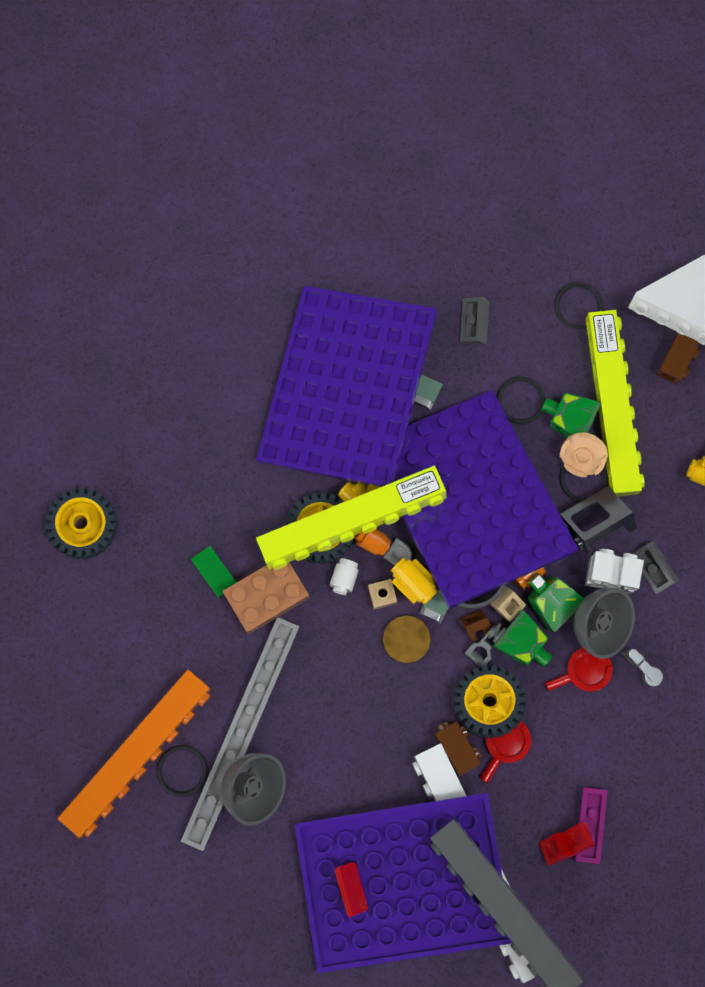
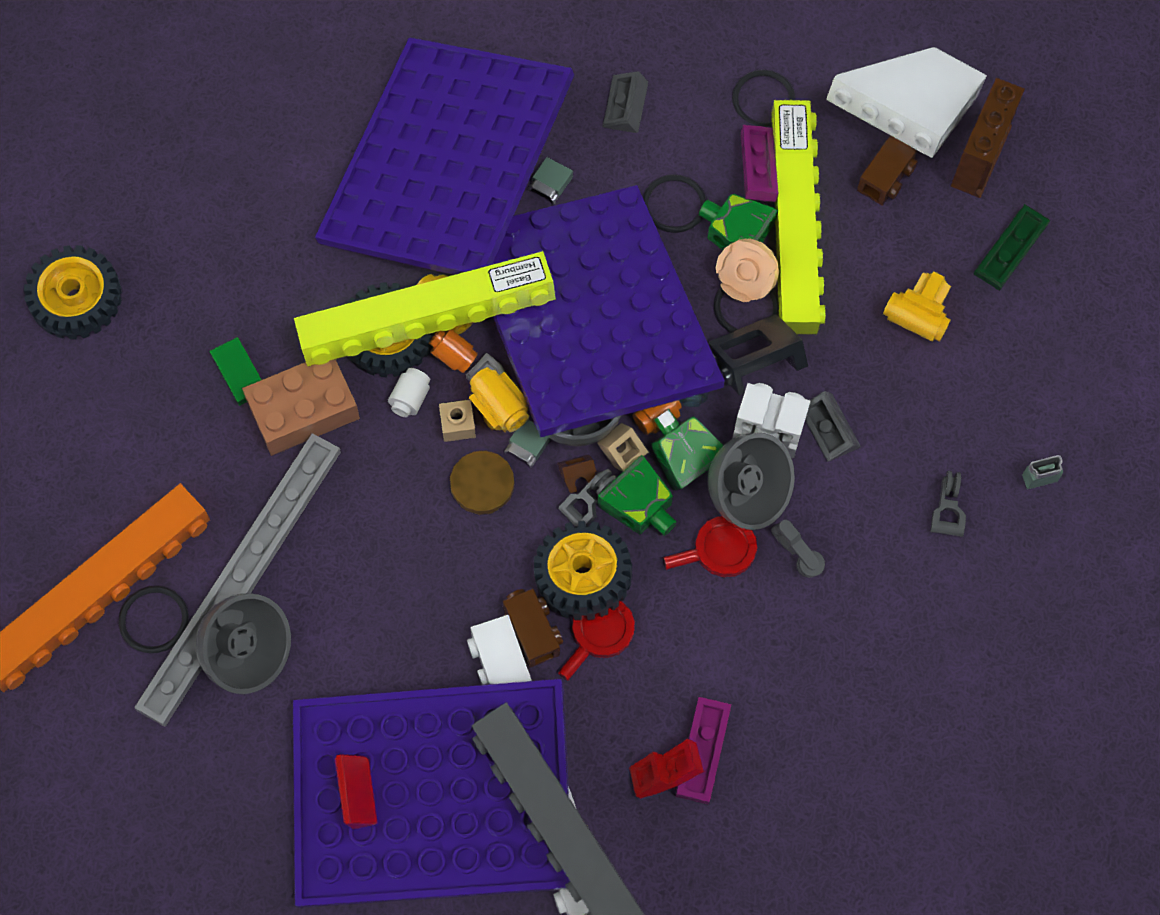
camera: 10 degrees right, 10 degrees down
(582, 364) = (759, 163): none -> magenta plate

